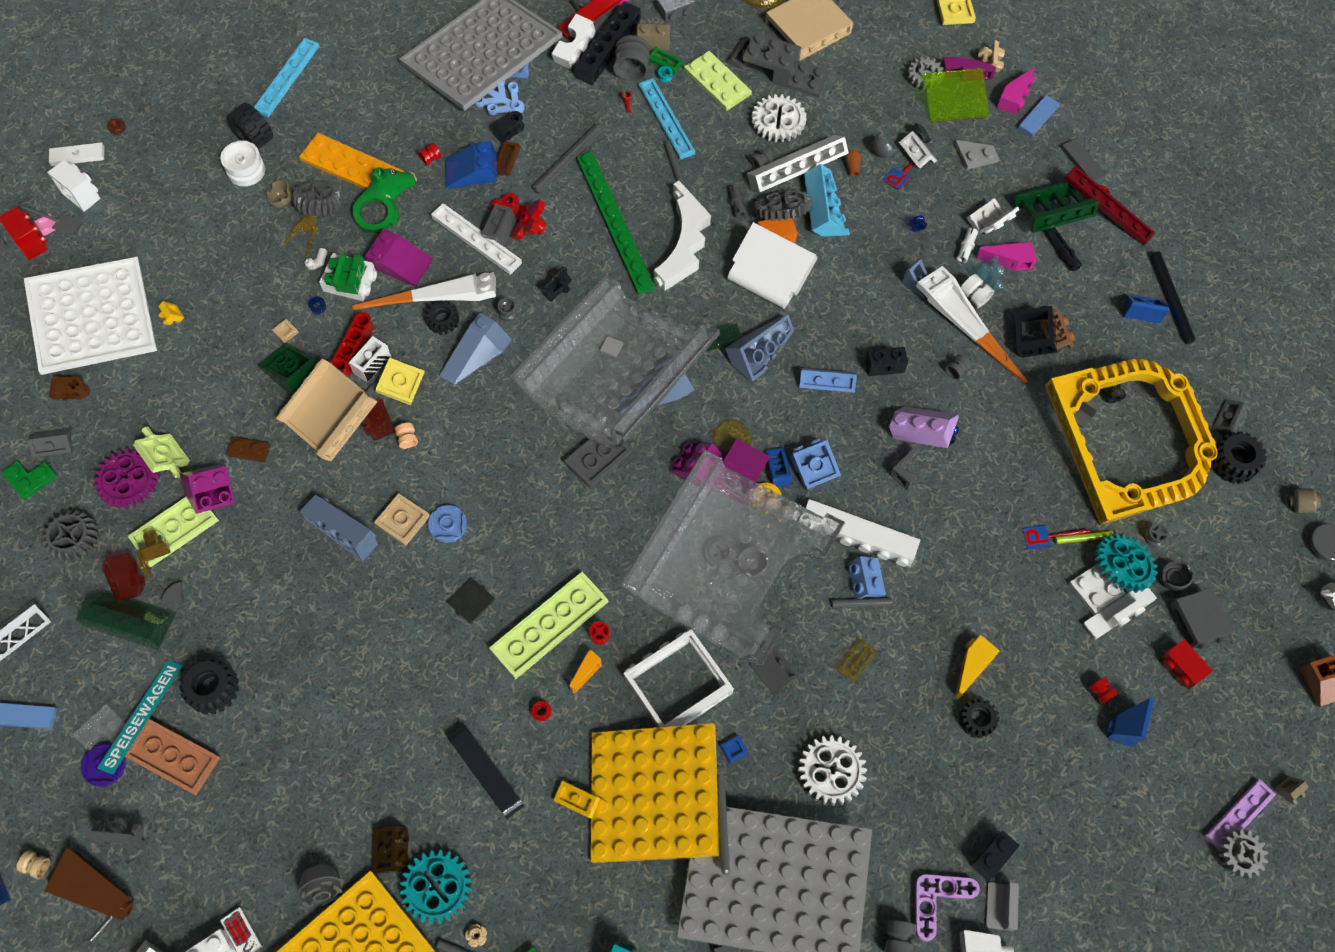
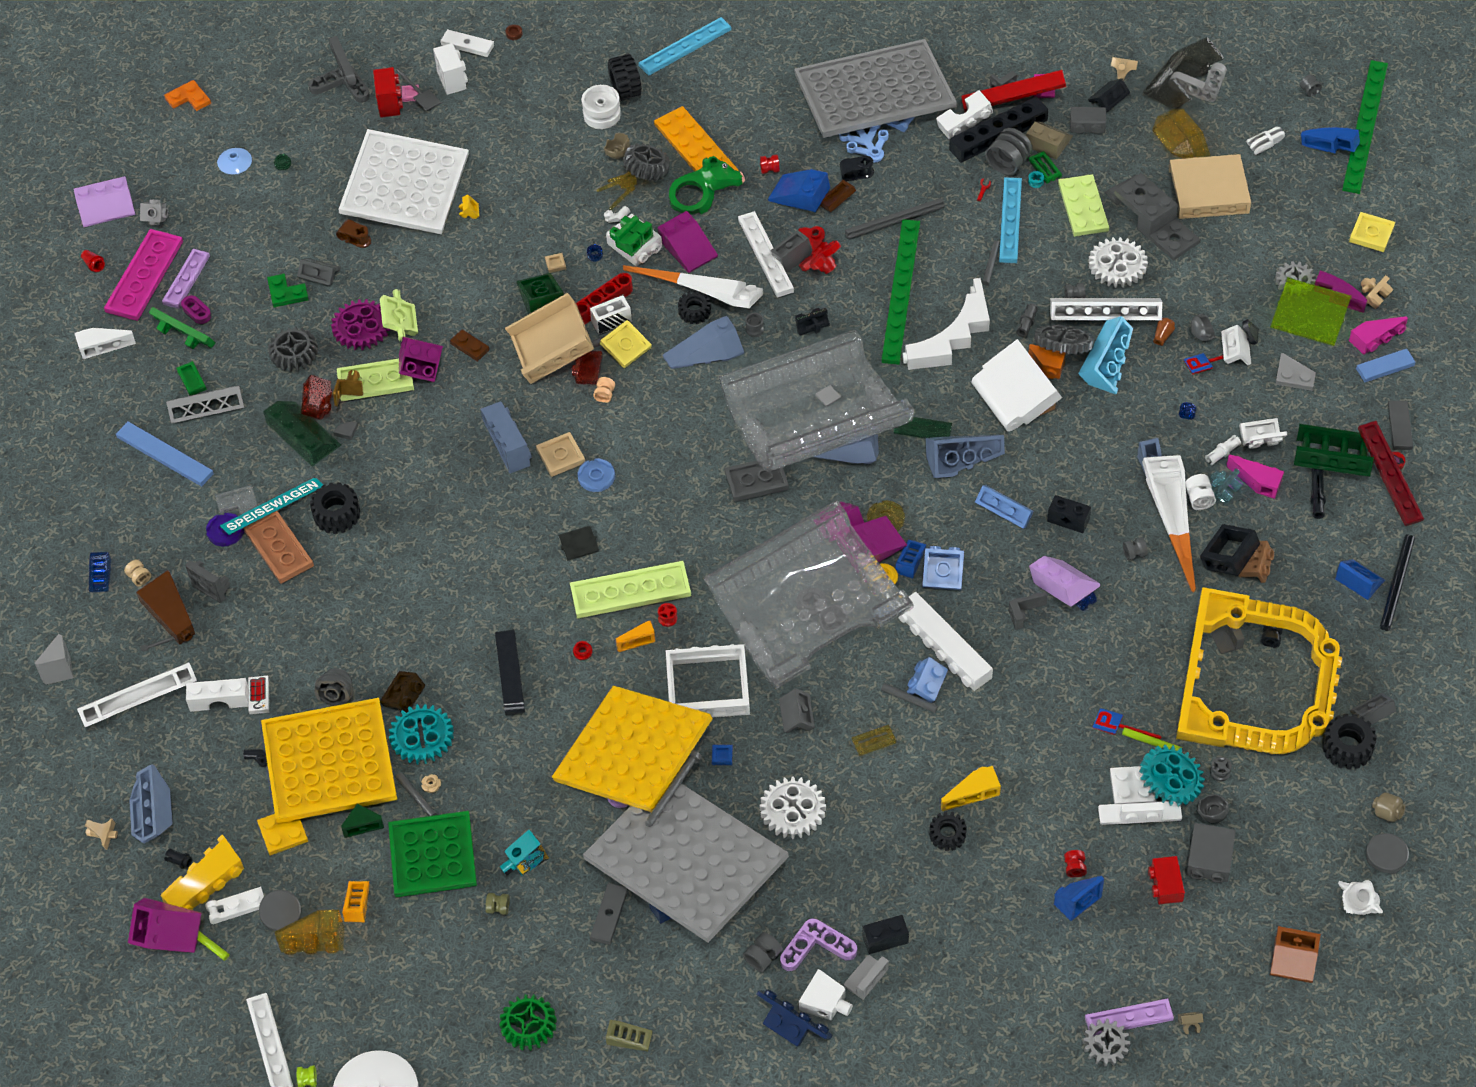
camera: 35 degrees right, 10 degrees down
(576, 799) = (568, 725): yellow plate -> none

